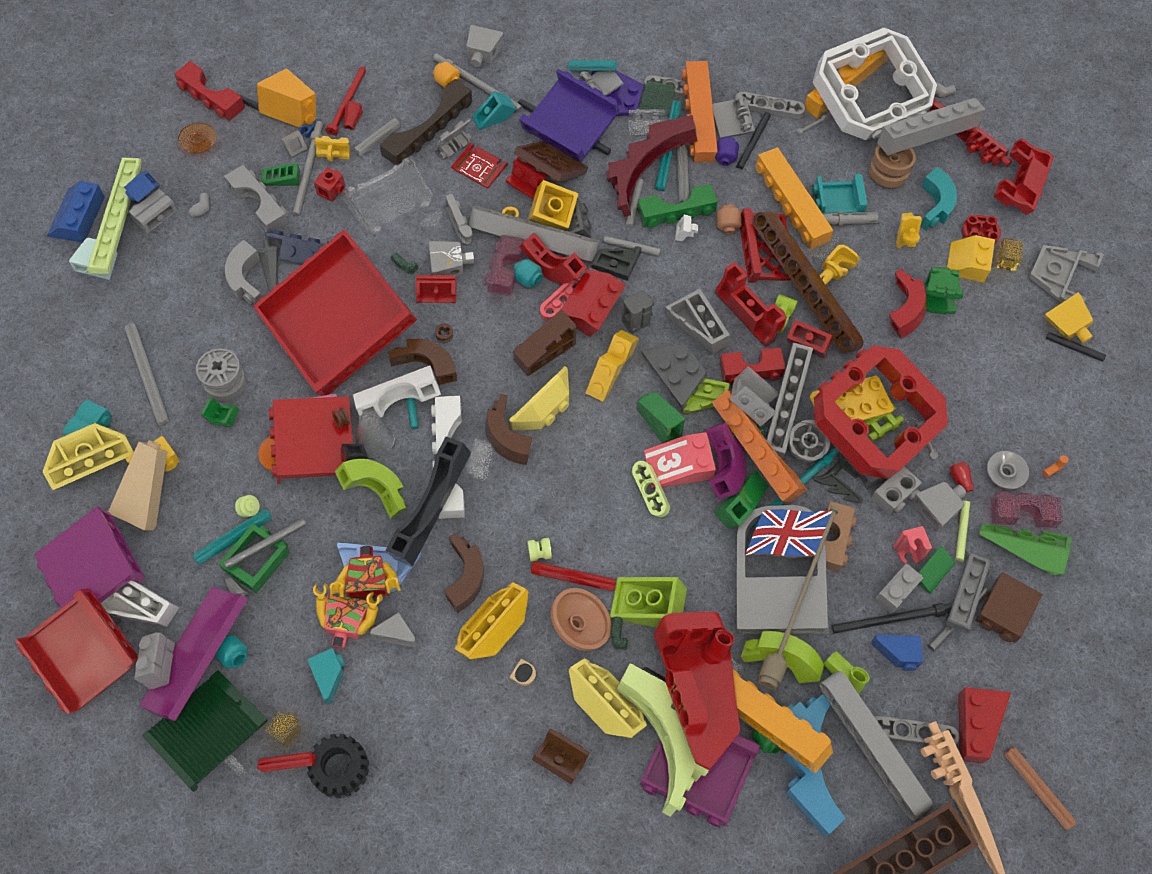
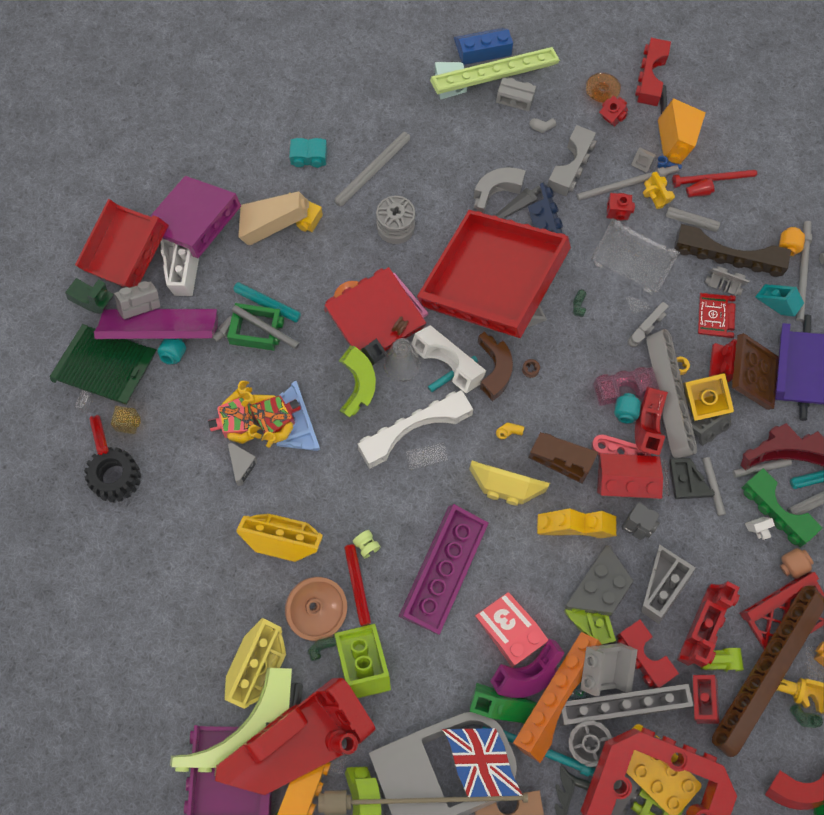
camera: 65 degrees right, 5 degrees up
(84, 453) = (277, 162): light yellow wedge -> none
(118, 712) = (91, 298): none -> dark green arch
(141, 186) = (531, 73): blue slope -> none
(219, 414) = (364, 236): green bracket -> none
(228, 146) = (614, 110): none -> red brick
(247, 506) = (295, 298): yellowish green wheel -> none
(286, 180) = (605, 173): green slope -> none
(327, 672) = (184, 429): teal slope -> none
(412, 535) = (393, 431): black arch -> none
(436, 288) = (568, 340): red hinge -> none
(447, 258) = (602, 335): light grey torso -> none
(467, 588) = (317, 500): reddish brown arch -> none
(492, 378) = (508, 429): none -> yellow arm
(506, 442) = (450, 472): reddish brown arch -> none
(523, 674) = (252, 583): tile -> none
(561, 756) = (191, 647): reddish brown bracket -> none
(596, 494) = (443, 569): none -> magenta arch
(658, 494) = (471, 623): yellowish green beam -> none
(661, 417) = (545, 591): green slope -> none
(855, 278) = (806, 719): none -> clear green arm

